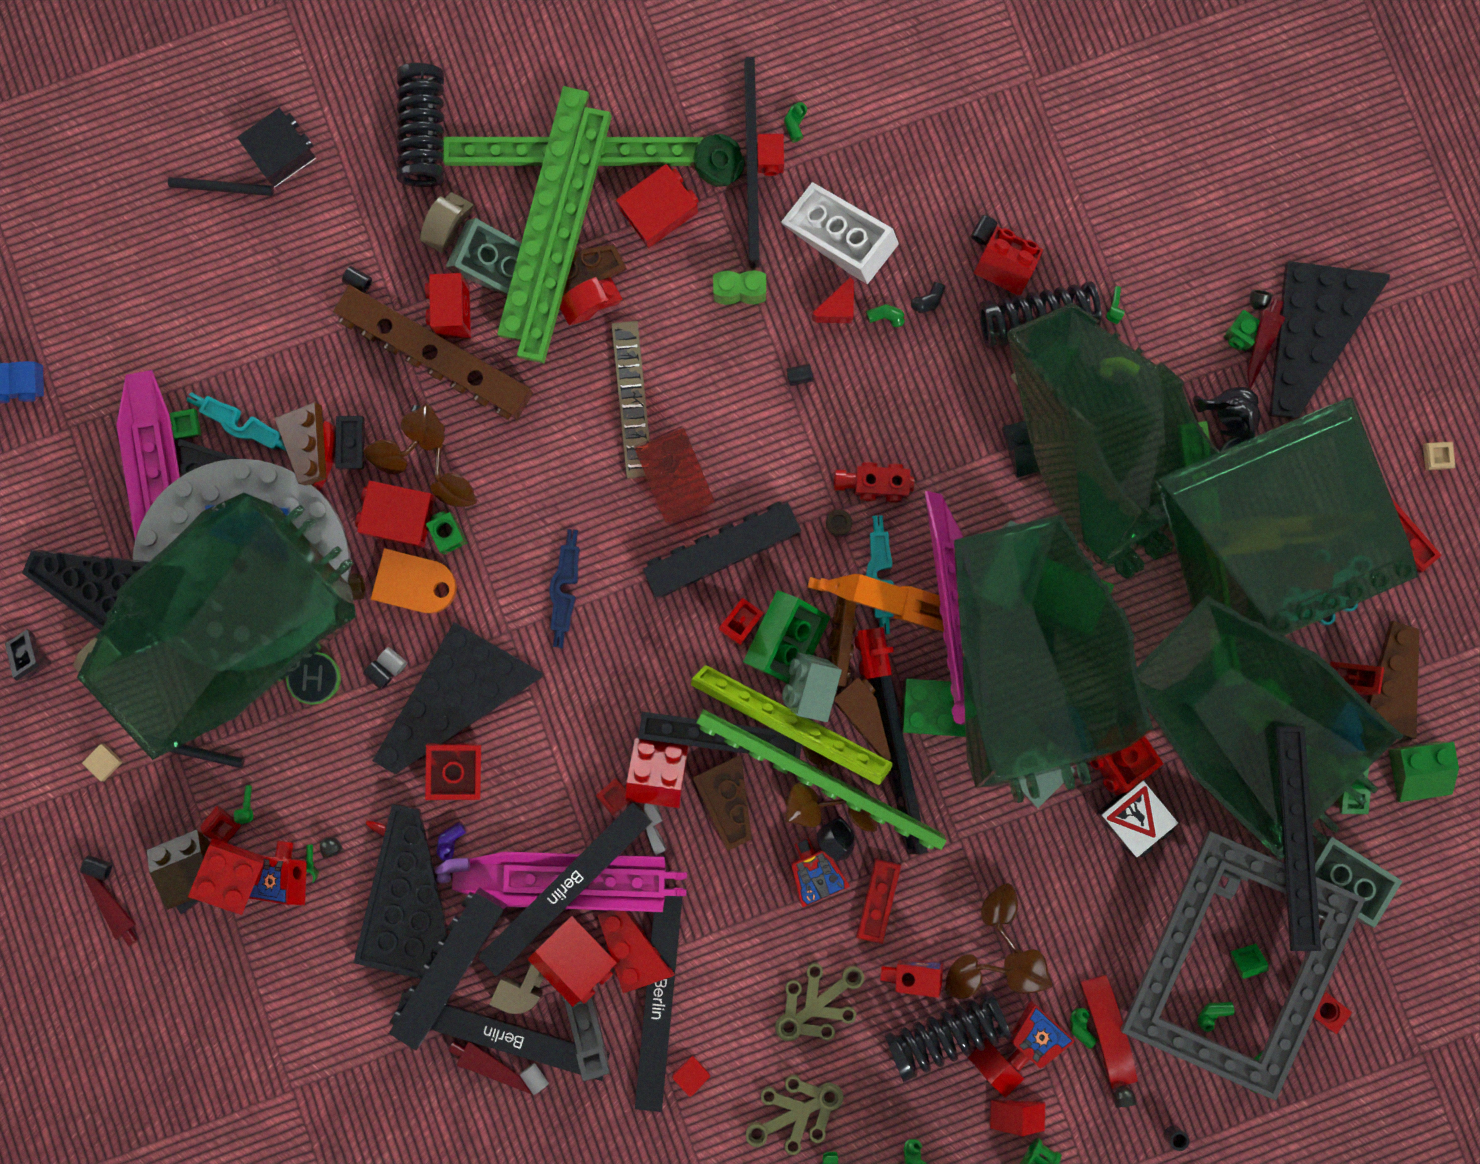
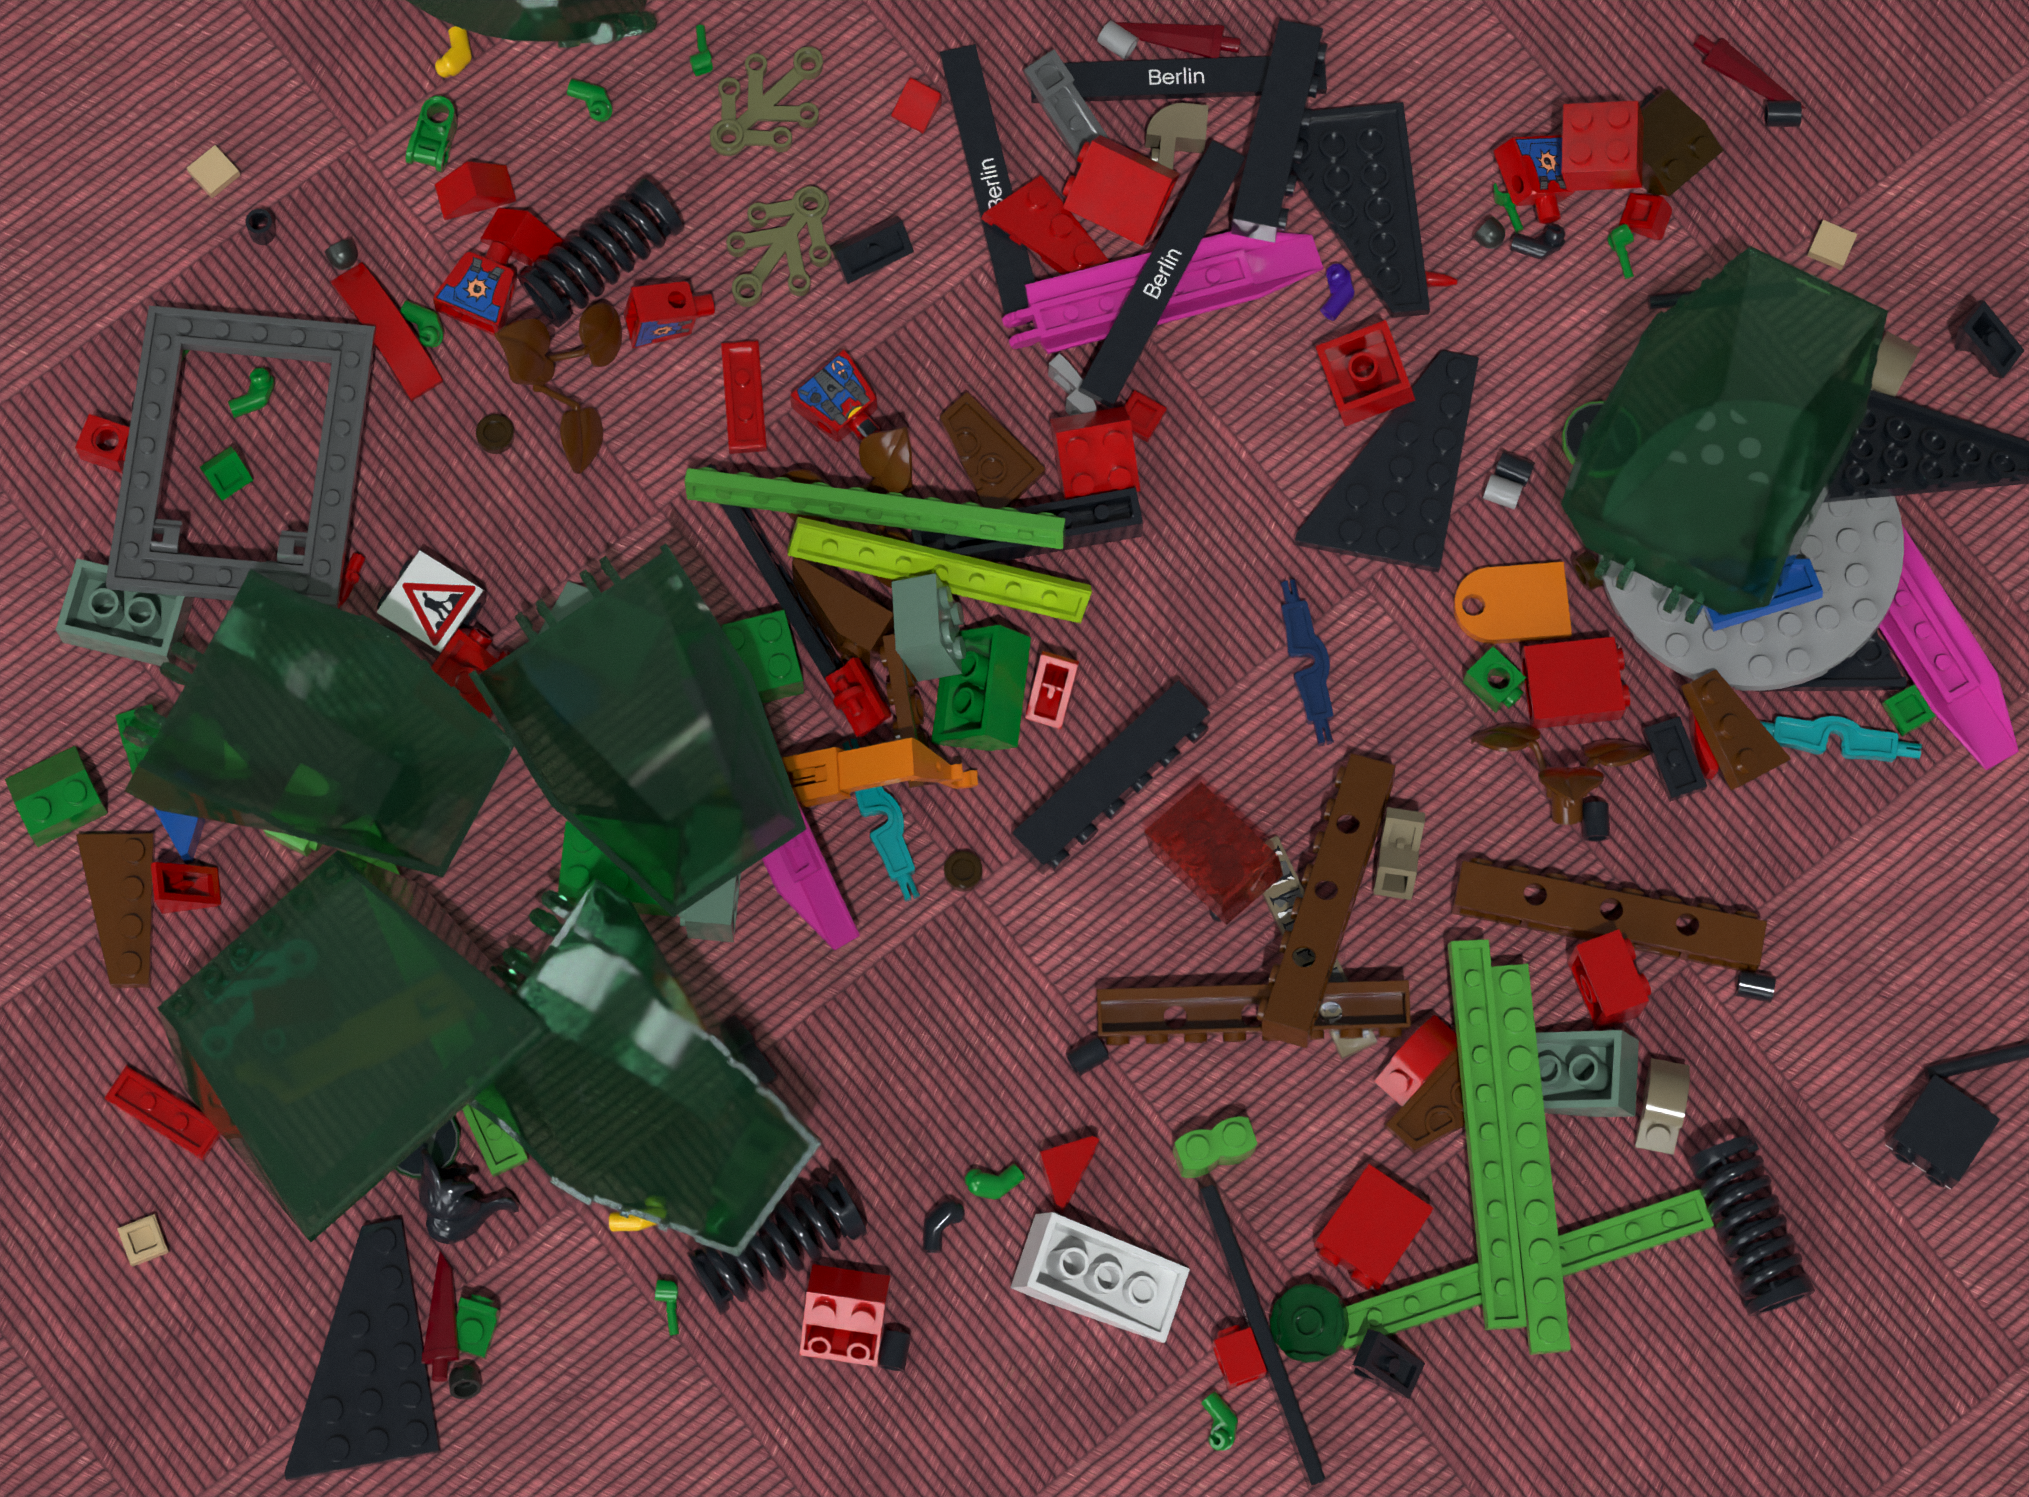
camera: 155 degrees right, 10 degrees down
(299, 827) = (1541, 246): none -> black arm
(450, 866) = (1329, 253): medium lavender arm -> none
(554, 435) = (1398, 853): none -> dark tan brick
(623, 396) = (1322, 923): none -> reddish brown piece
(661, 357) = (1218, 1010): none -> reddish brown piece
(680, 119) = (1387, 1364): none -> black slope
(757, 977) = (872, 249): none -> black plate
(836, 839) = (827, 450): black hat -> none
(883, 482) = (924, 947): red brick -> none
(1056, 930) = (495, 434): none -> dark brown tile
(1184, 858) = (350, 577): none -> red helmet
(1297, 839) = (218, 632): black tile -> none

